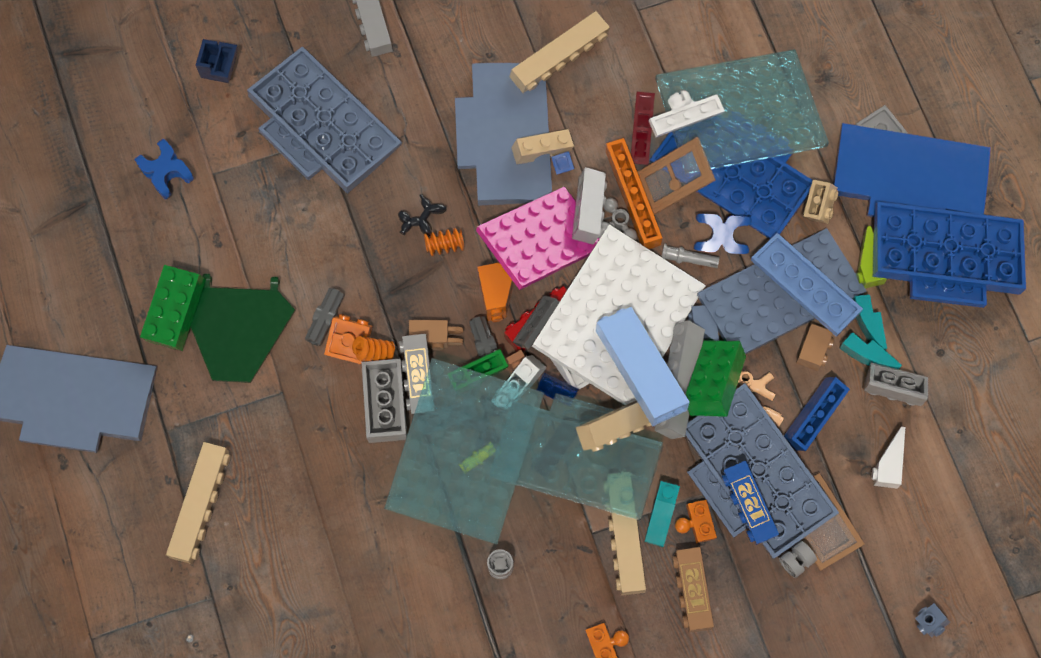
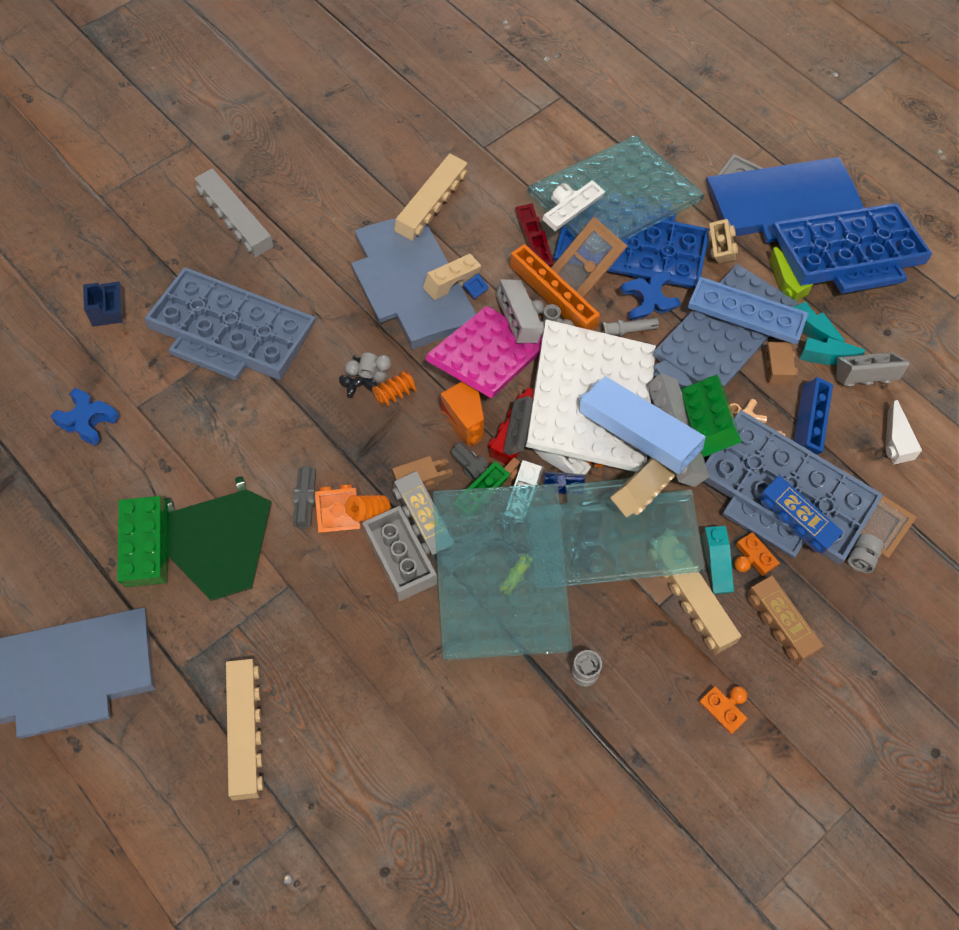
camera: 25 degrees left, 10 degrees down
(428, 213) = (370, 367): none -> light grey piece

